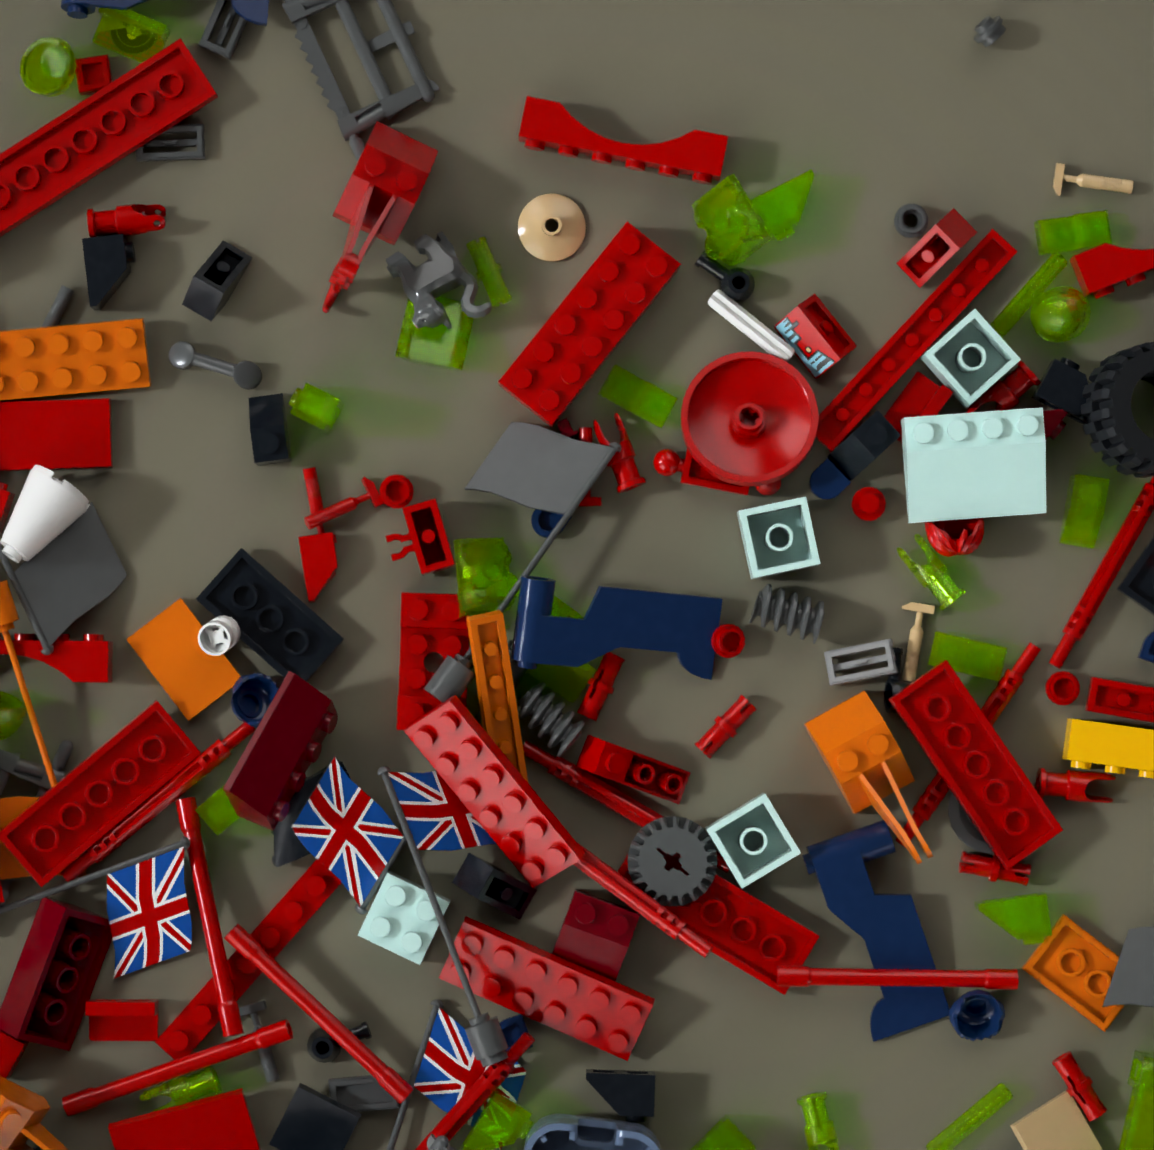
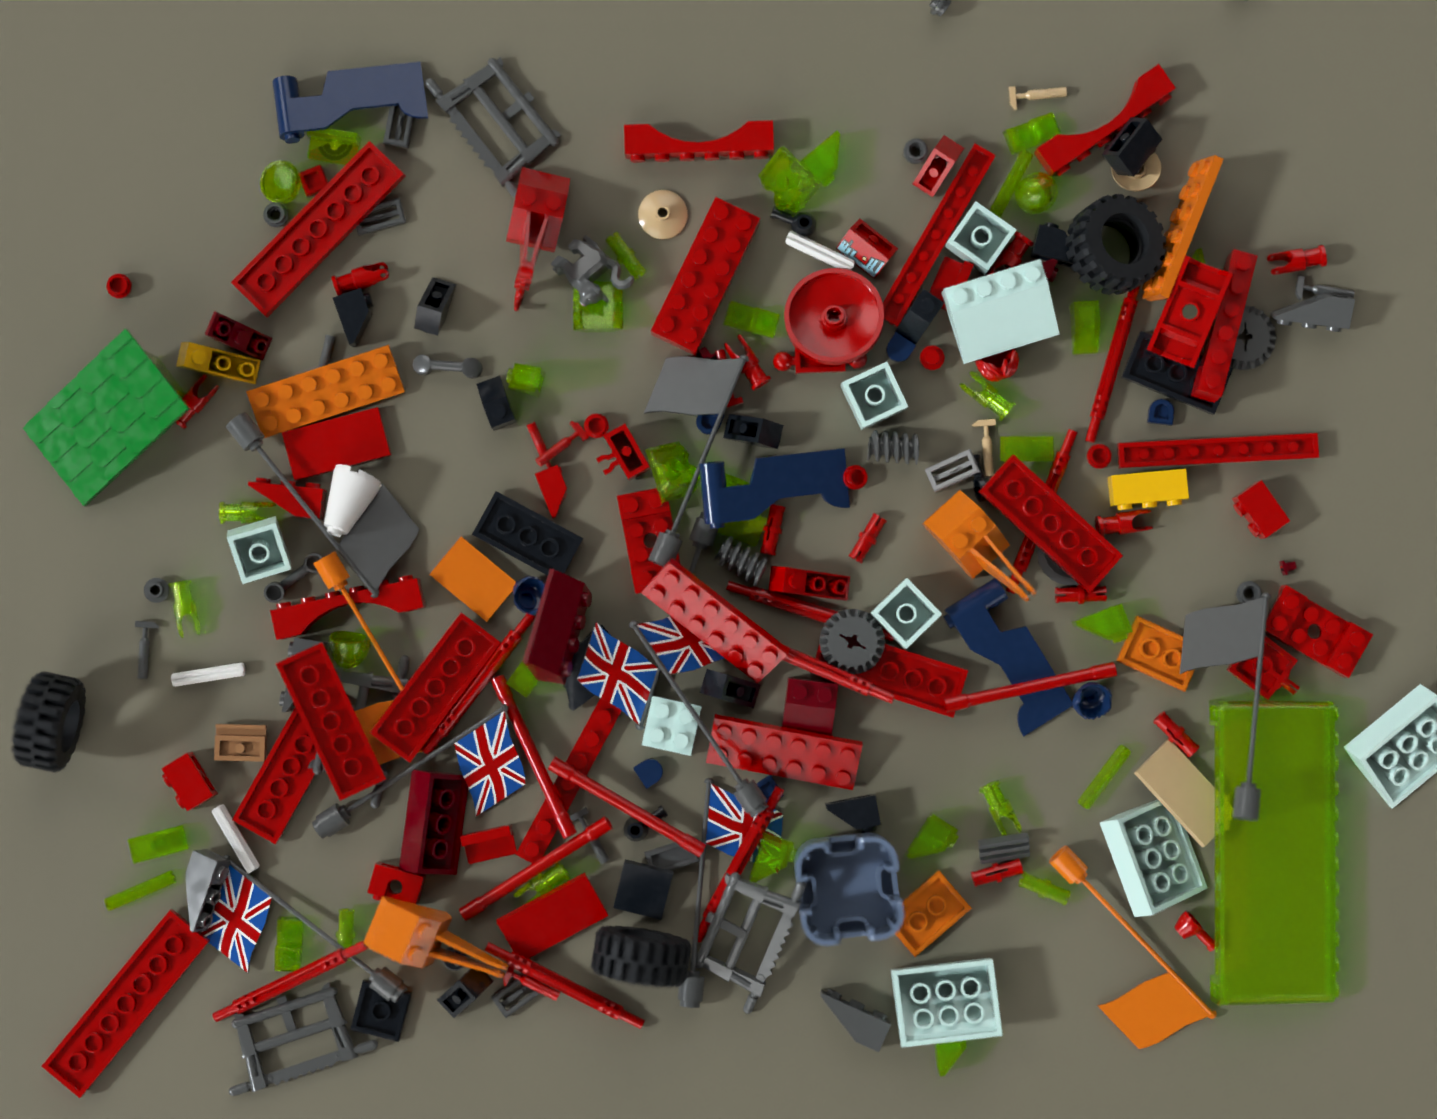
camera: 10 degrees left, 0 degrees up
(23, 103) = (270, 209): none -> dark grey plate
(213, 640) = (491, 560): white wheel -> none
(359, 972) = (649, 772): none -> dark blue tile
(496, 685) = (698, 544): orange plate -> none
(605, 547) = (753, 431): none -> black slope

